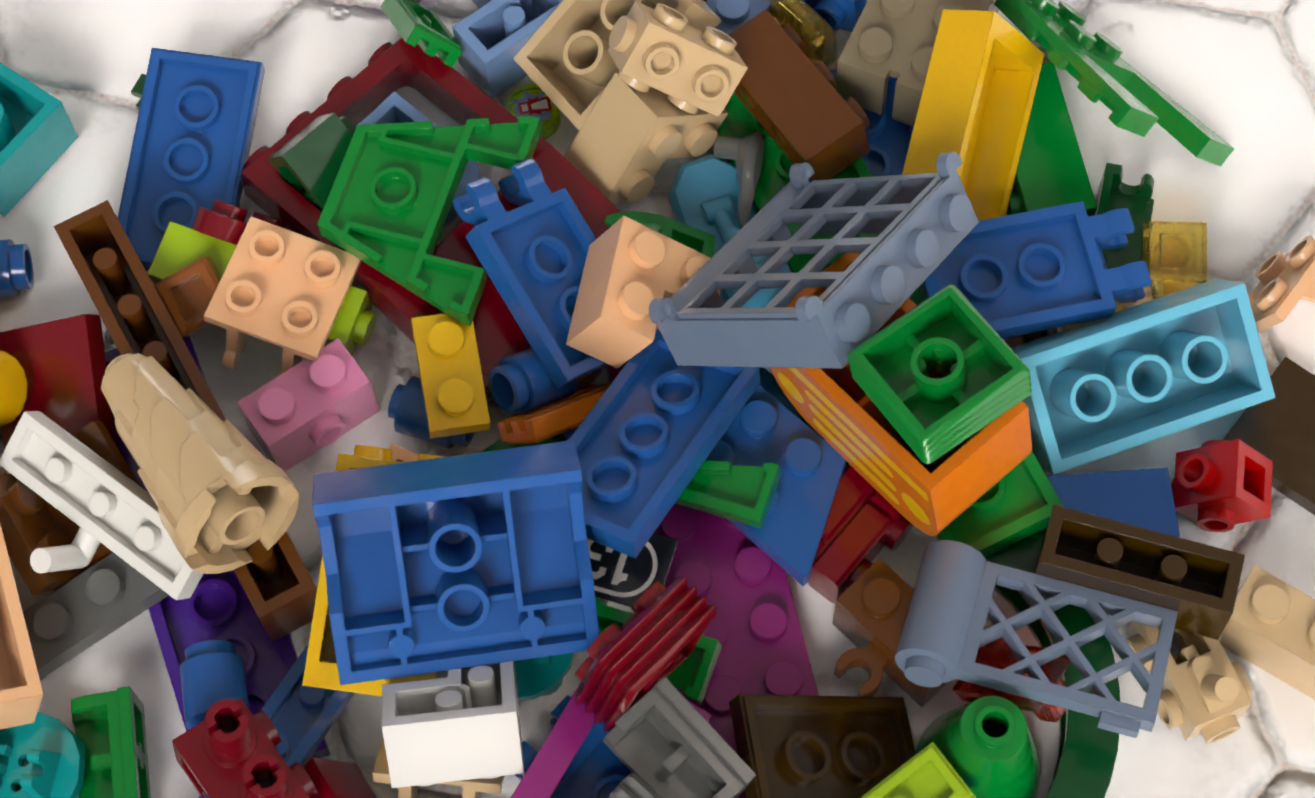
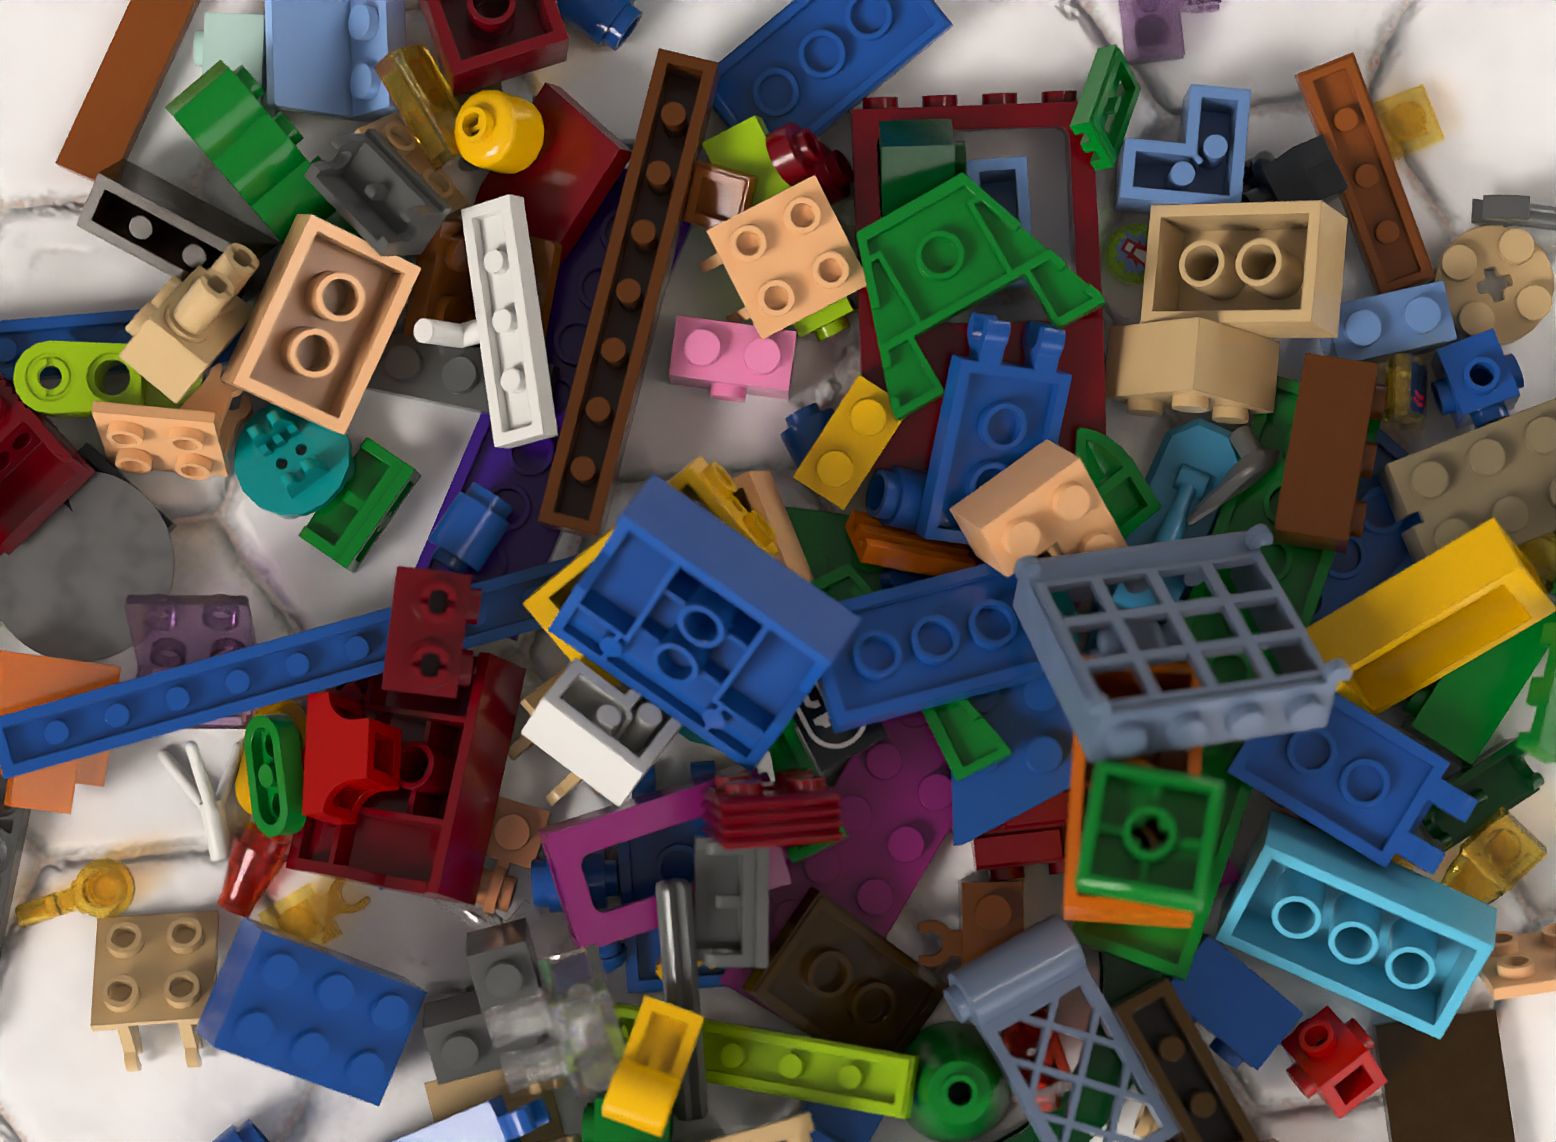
camera: 45 degrees right, 20 degrees up
(200, 471) = (586, 369): tan cone -> none
(667, 54) = (1254, 354): tan brick -> none

